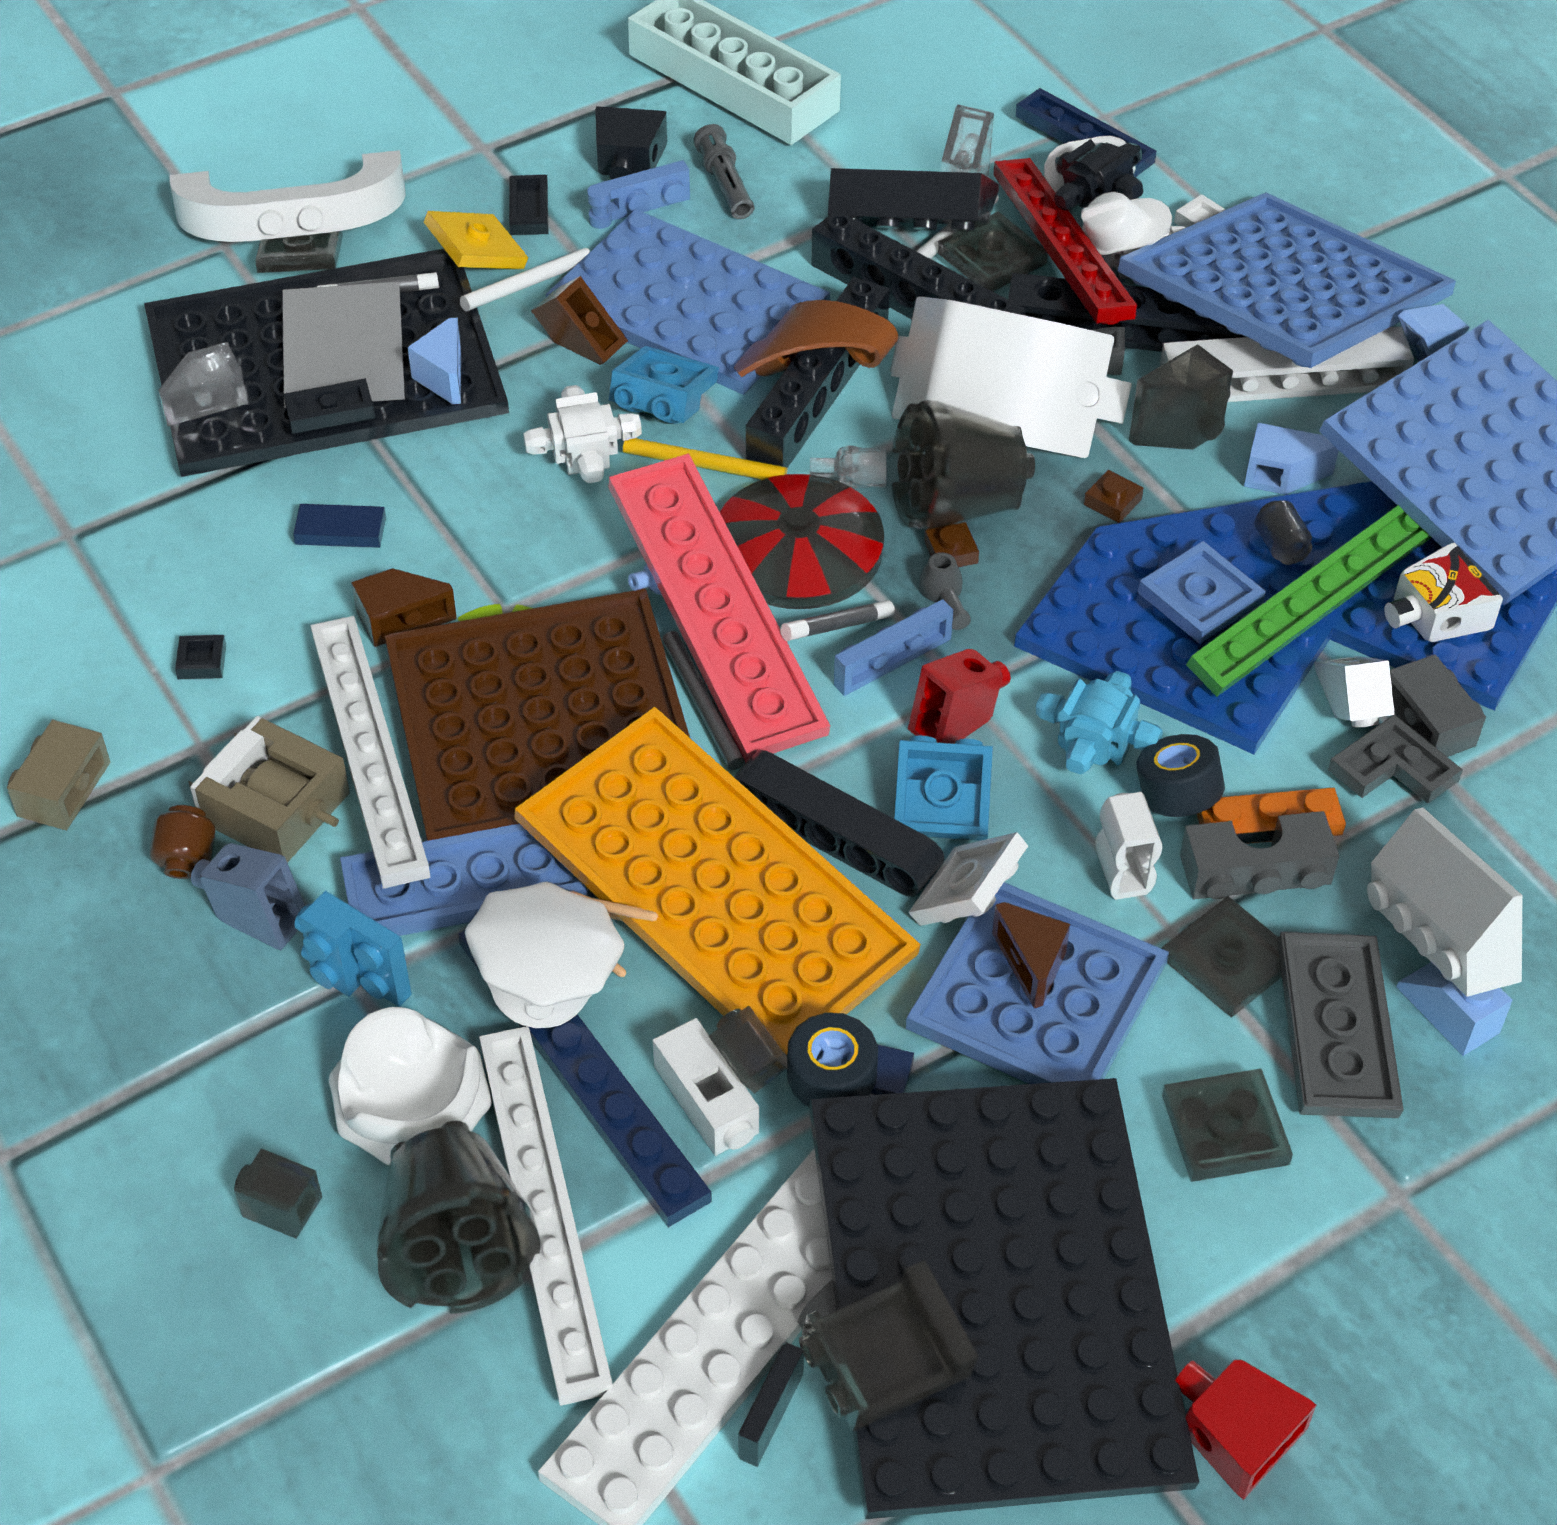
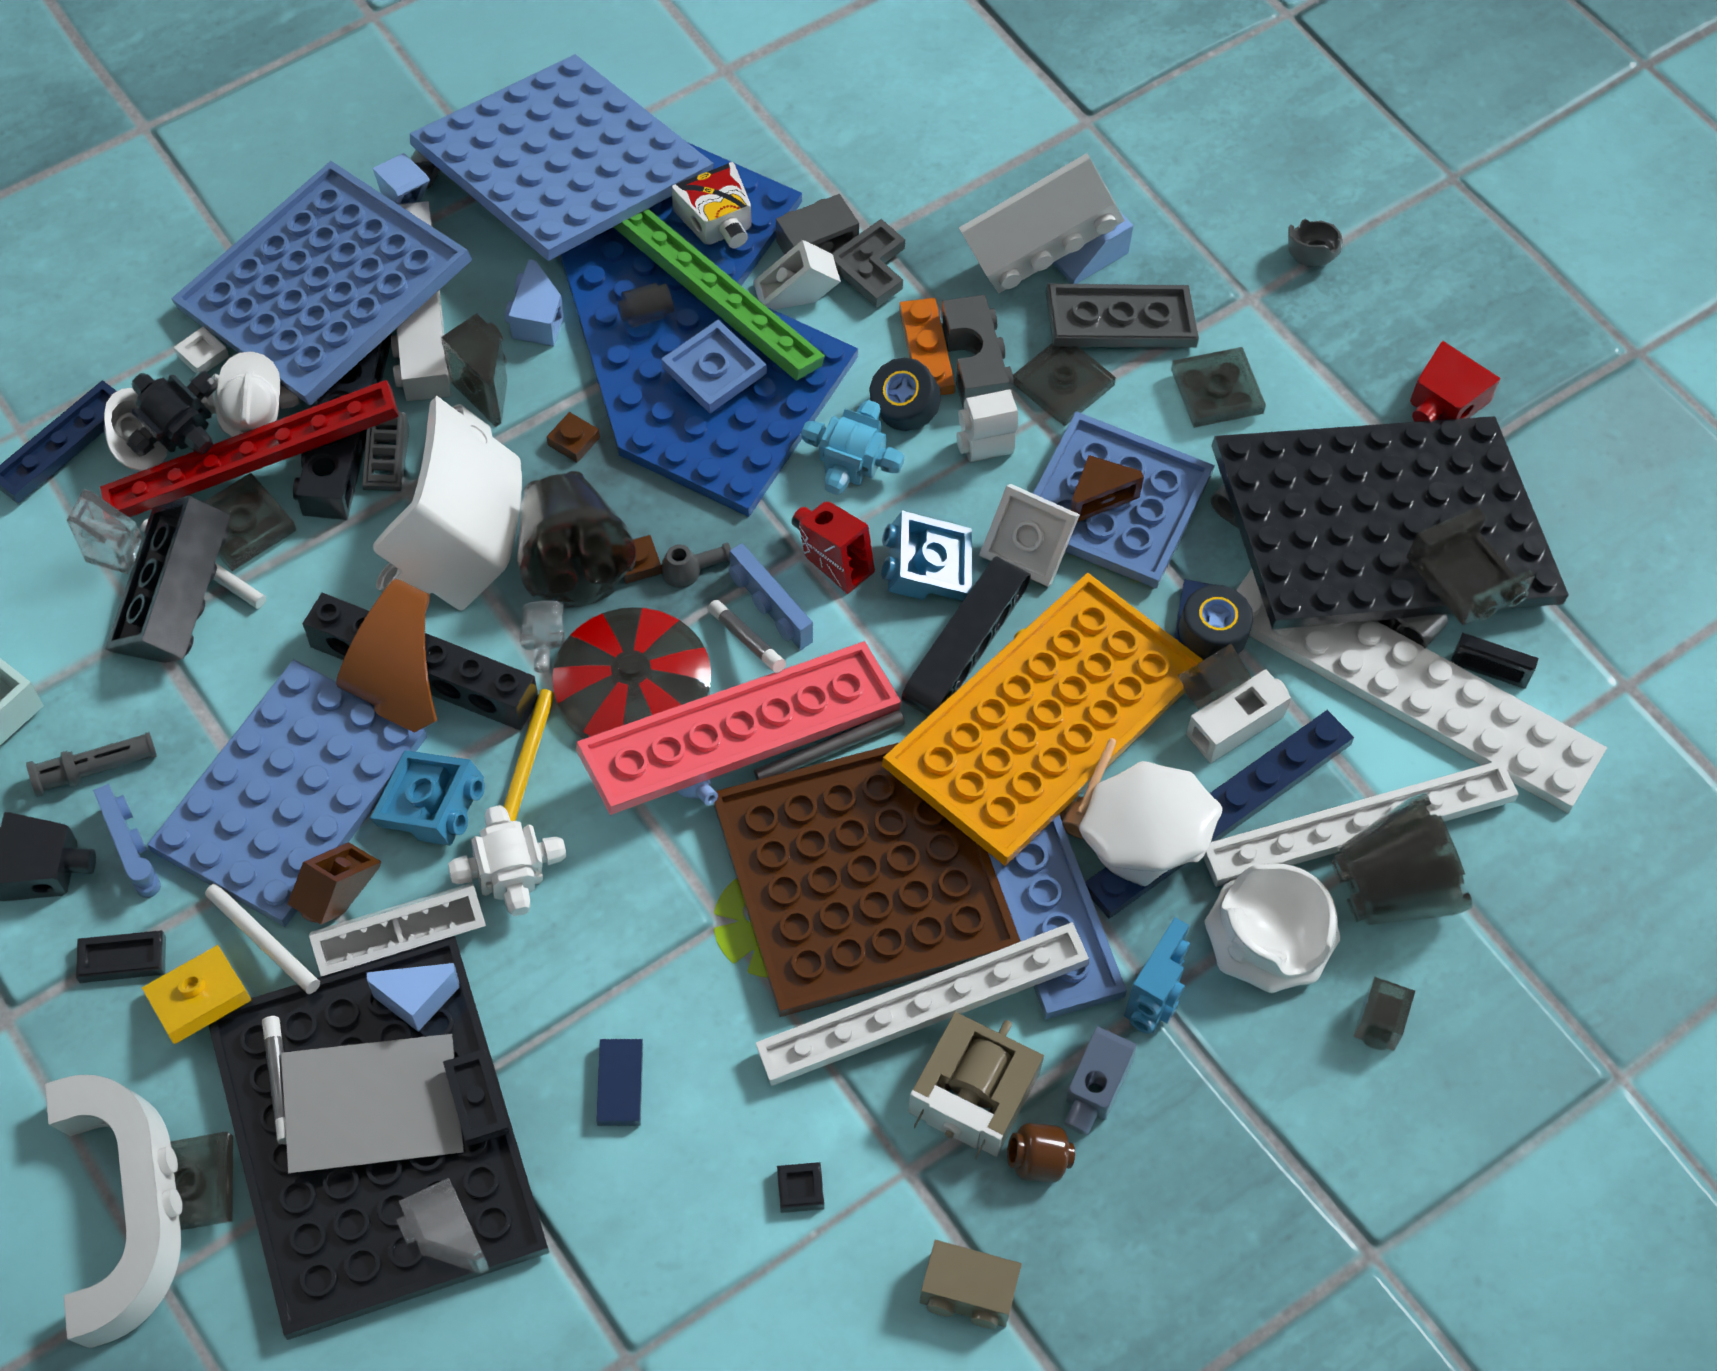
camera: 95 degrees left, 10 degrees up
(401, 602) = (736, 1008): reddish brown slope -> none
(521, 361) = (396, 929): none -> white brick
(852, 249) = (294, 583): black brick -> none
(1498, 1270) = (1314, 243): none -> dark grey hair

